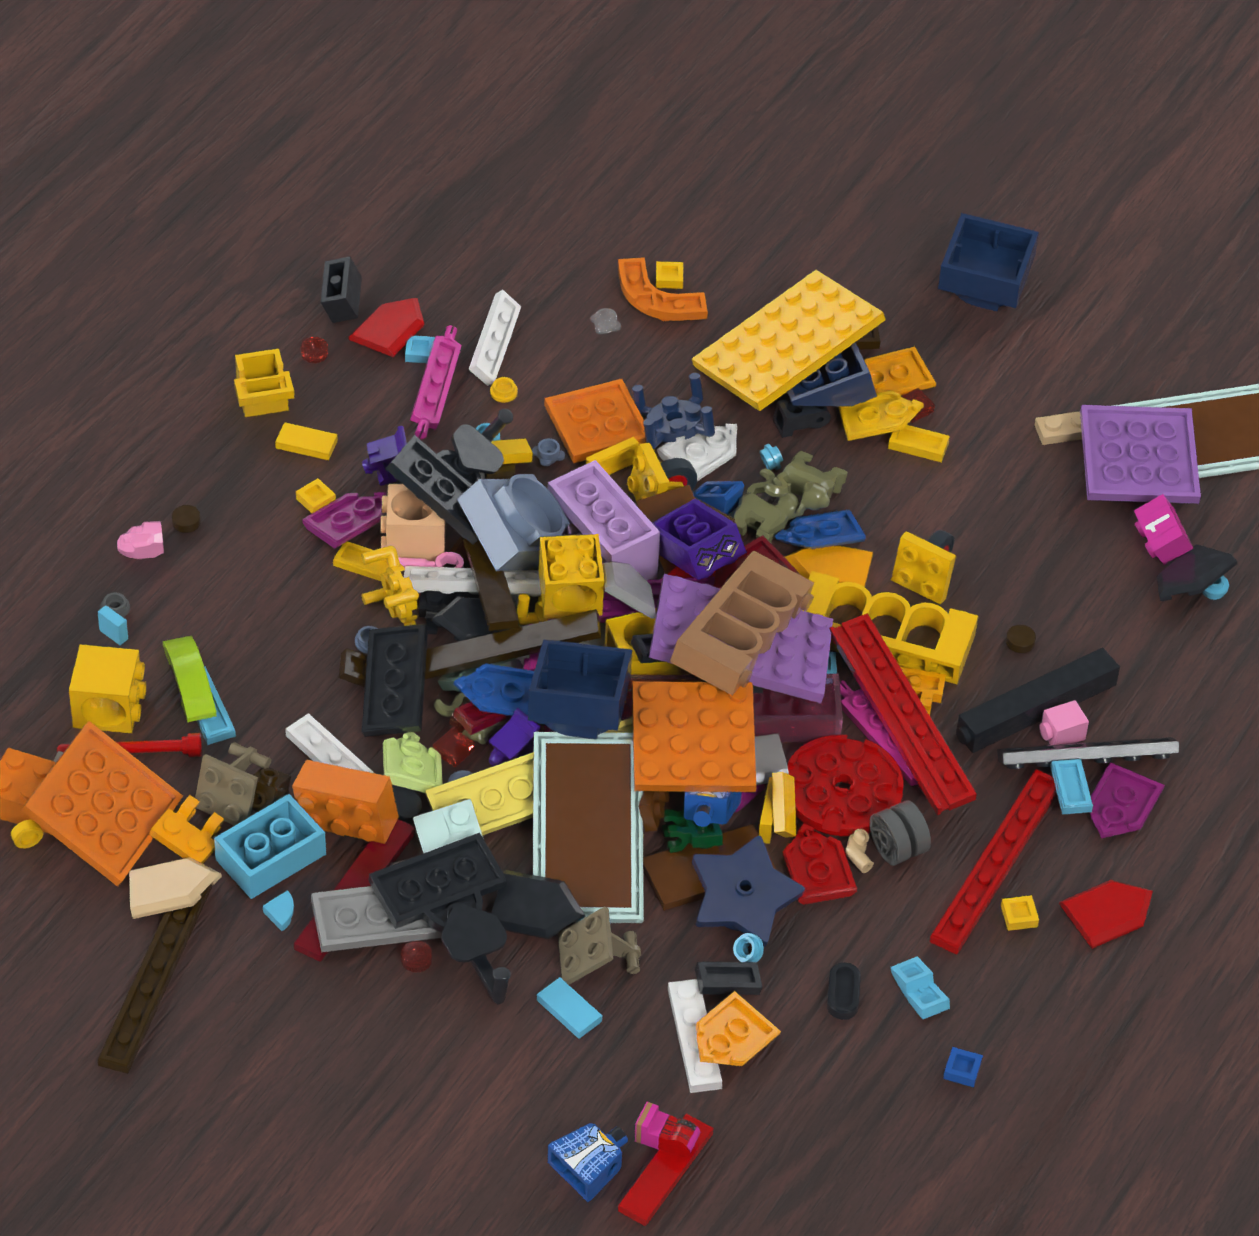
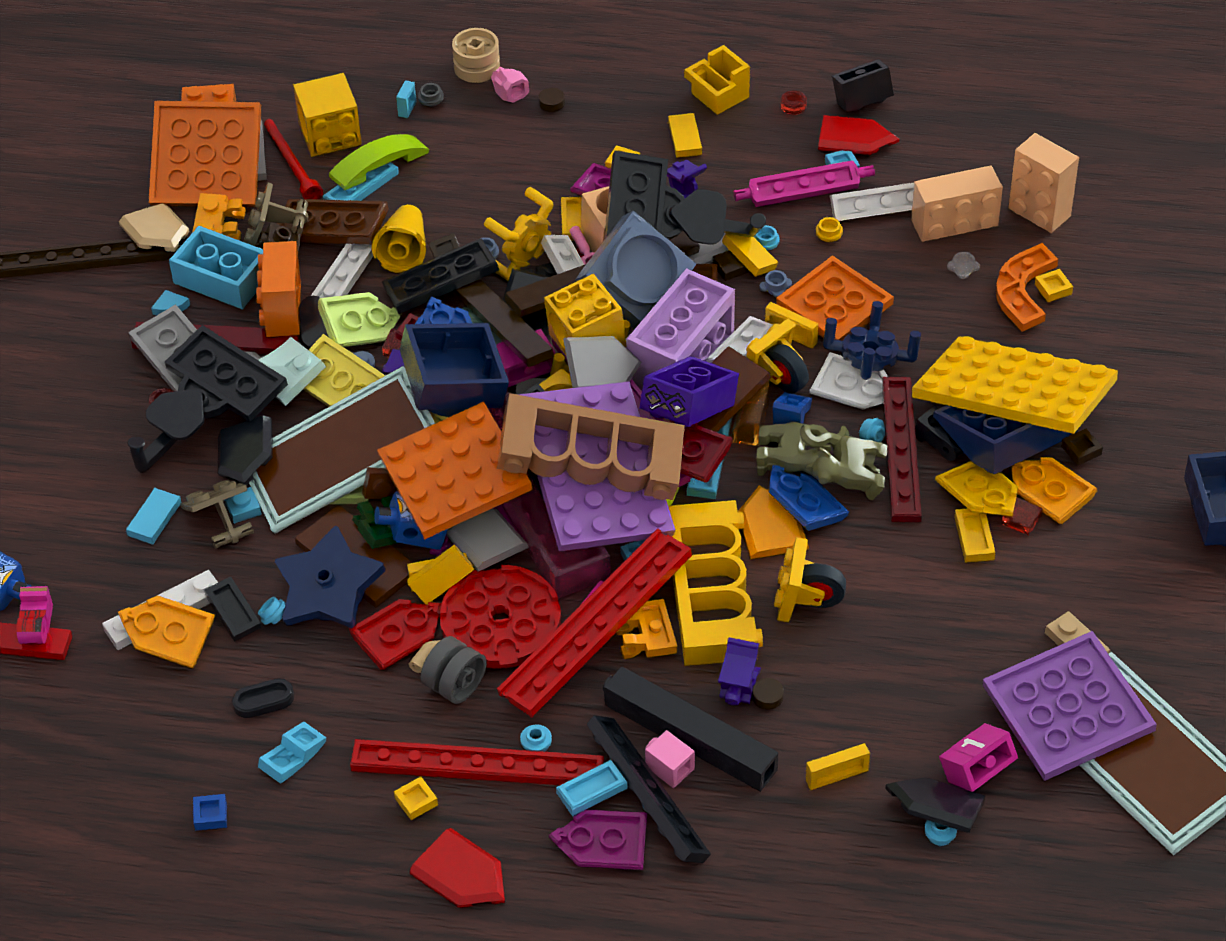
camera: 70 degrees right, 0 degrees up
(88, 548) = (475, 54): none -> tan wheel
(267, 725) = (340, 220): none -> reddish brown tile
(322, 690) = (401, 240): none -> yellow cone
(543, 289) = (956, 203): none -> light nougat brick
(566, 220) = (1043, 182): none -> light nougat brick
(790, 442) = (901, 449): none -> dark red tile
(992, 815) = (539, 744): none -> medium azure plate
(1004, 642) = (739, 671): none -> dark purple piece
(1125, 621) = (837, 766): none -> yellow tile

